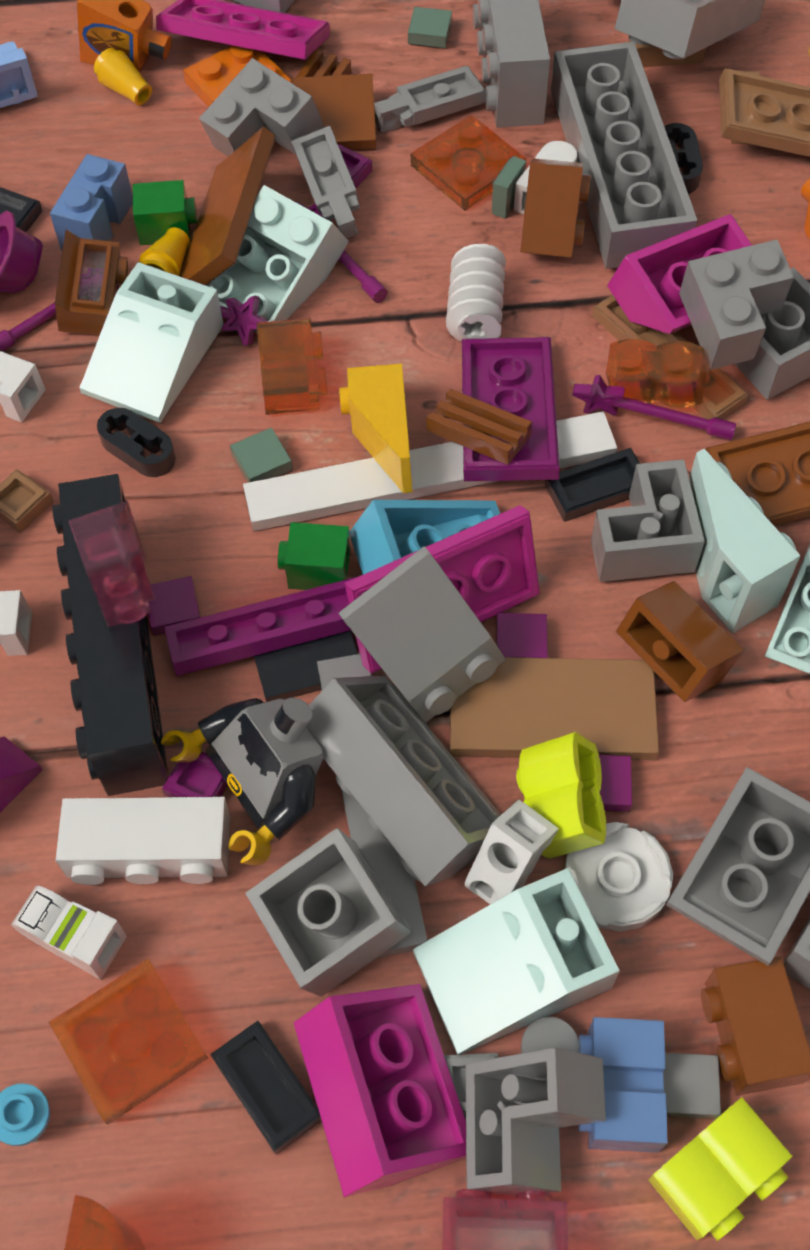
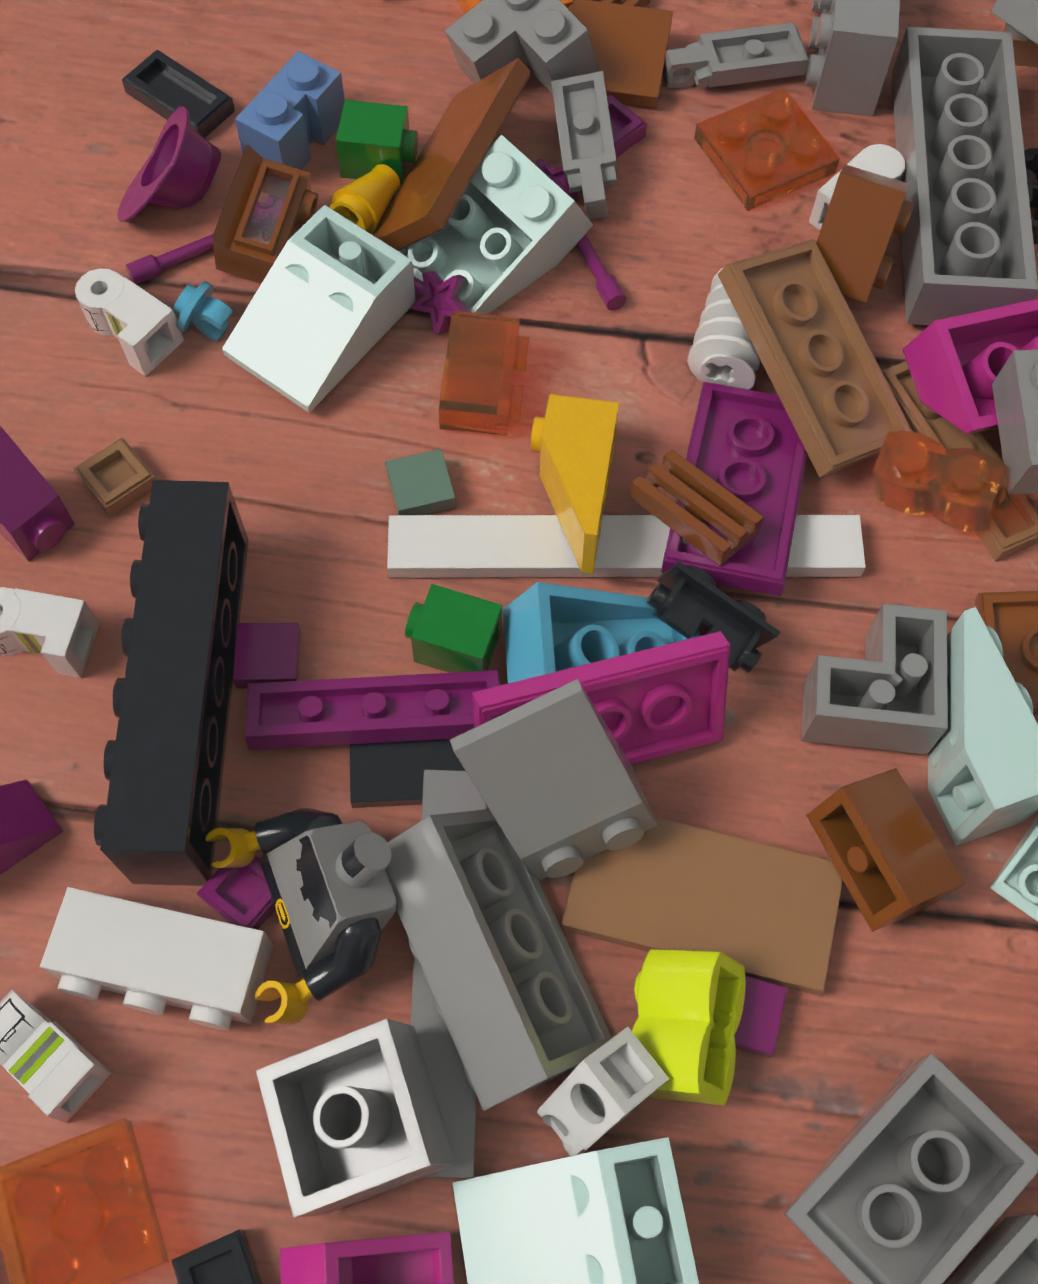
camera: 10 degrees right, 5 degrees up
(58, 363) = (200, 309): none -> medium azure plate
(114, 563) = (183, 612): clear pink window -> none
(141, 435) = (265, 439): black beam -> none
(490, 492) = (690, 597): none -> black hinge
(504, 187) = (804, 190): sand green tile -> none
(522, 635) = (687, 792): magenta tile -> none
(541, 300) = (814, 355): none -> medium nougat tile
(593, 484) = (827, 608): black tile -> none
(611, 397) = (874, 500): magenta piece -> none
(623, 878) = (740, 1153): white tile -> none

